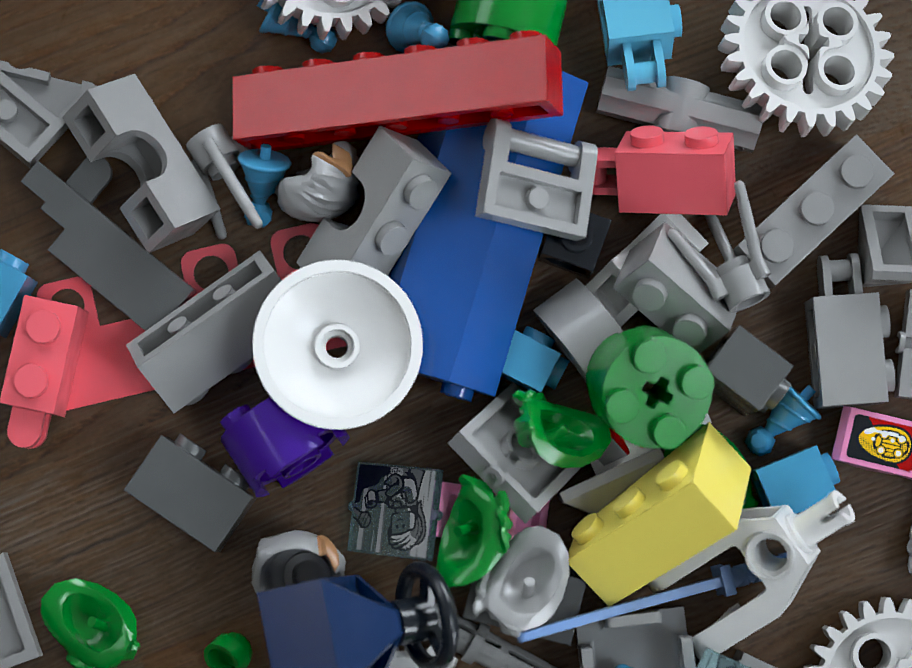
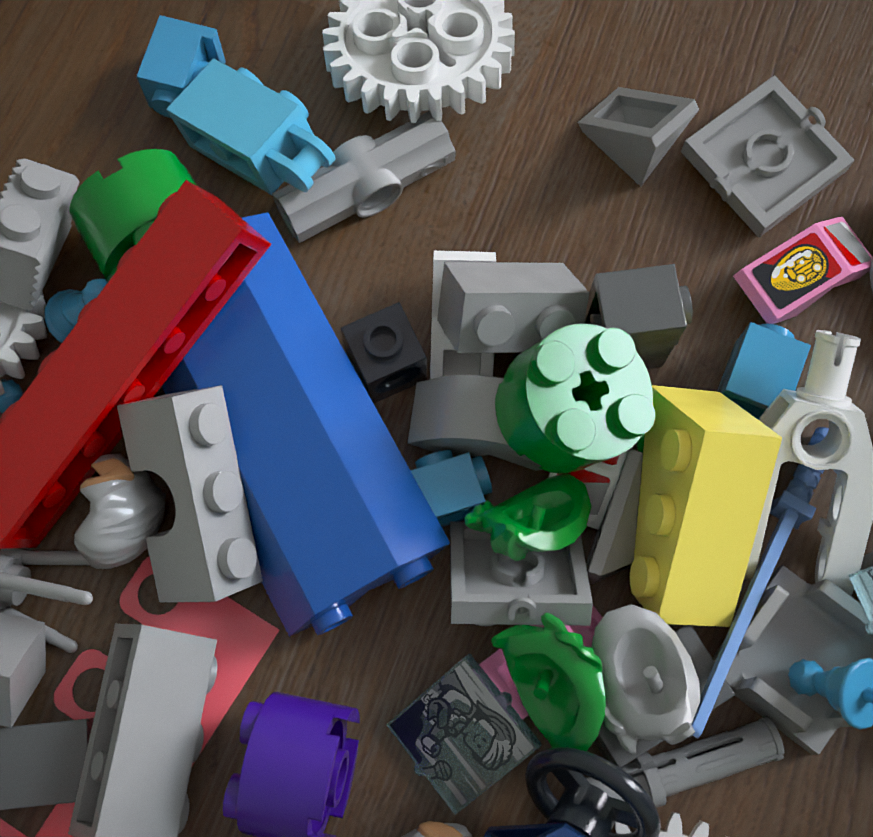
camera: 45 degrees left, 10 degrees down
(263, 172) = (57, 557): dark azure piece -> none
(344, 303) = (255, 582): white dish -> none
(532, 196) = (309, 336): light grey plate -> none
(669, 171) = (403, 225): coral brick -> none
(739, 281) = (550, 248): light grey plant -> none
(789, 413) = (706, 311): dark azure piece -> none
(818, 208) = (551, 156): light grey arch -> none
(847, 339) = (679, 224): light grey brick -> none

